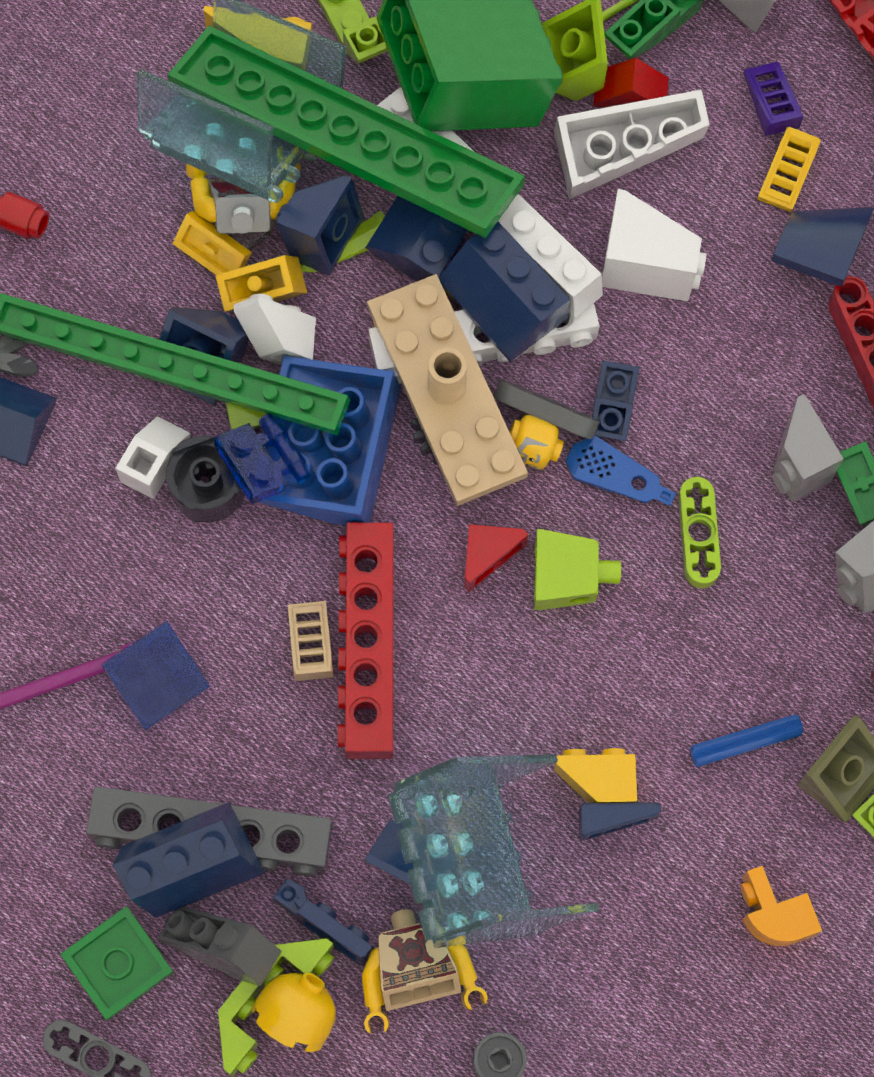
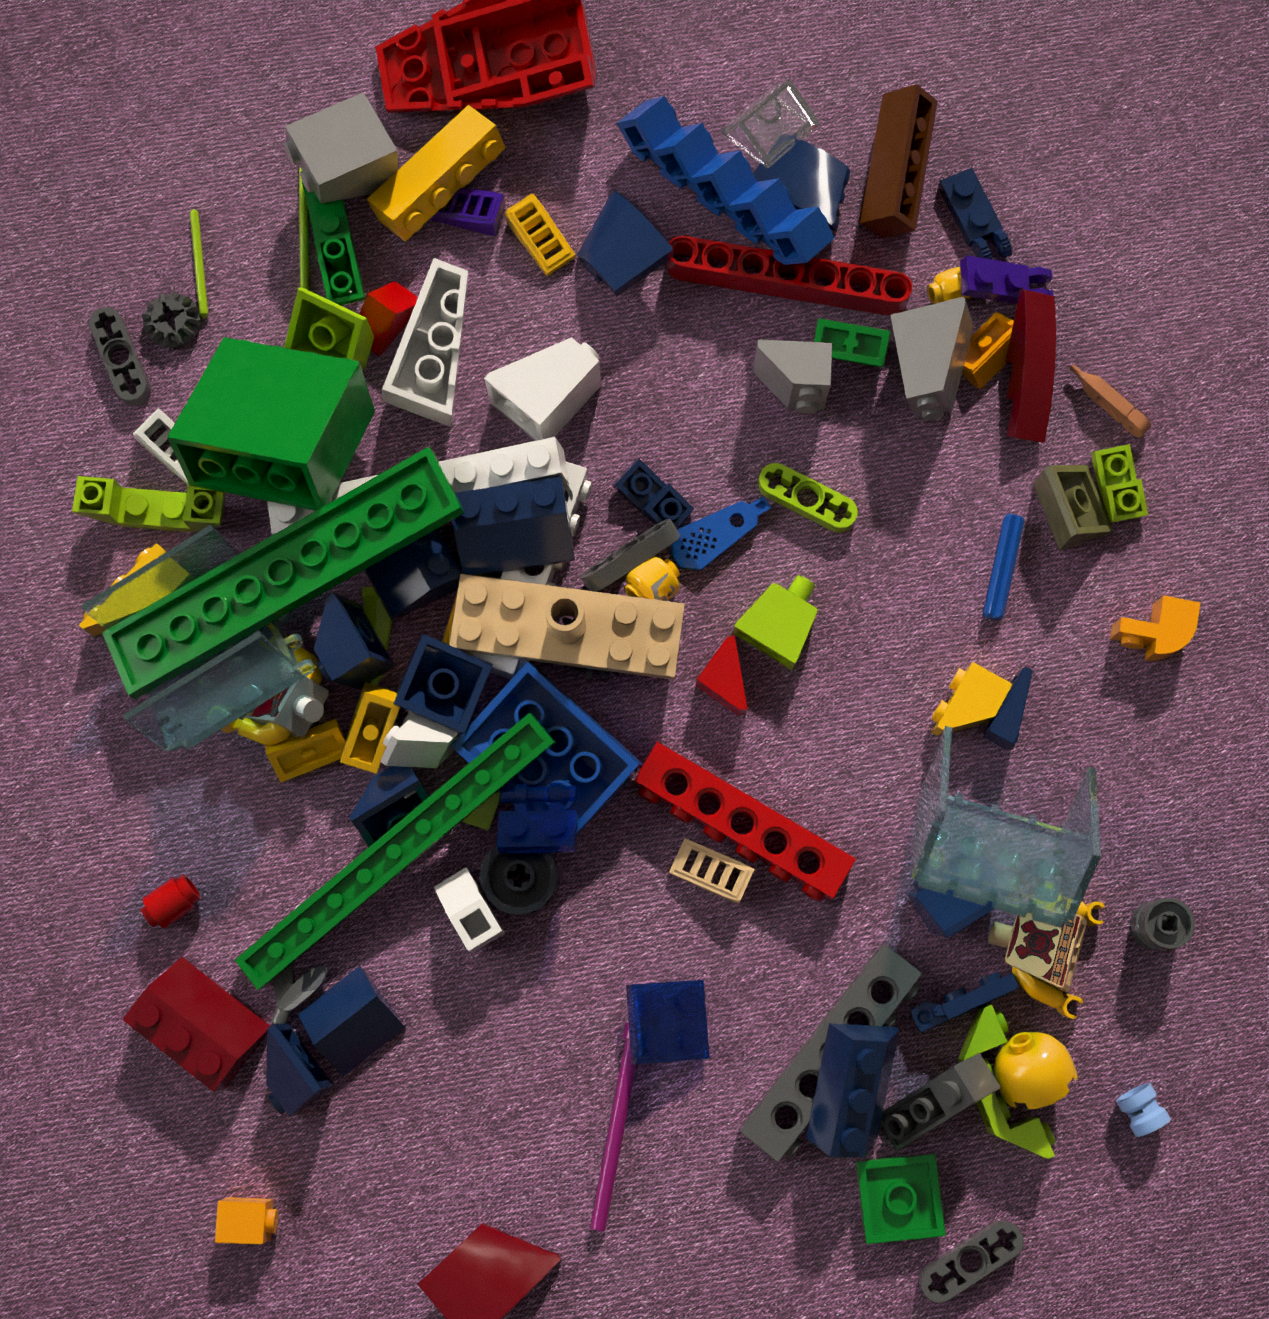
camera: 55 degrees left, 5 degrees up
(331, 316) = (442, 684): none -> dark blue slope
(786, 52) = (436, 173): none -> yellow brick

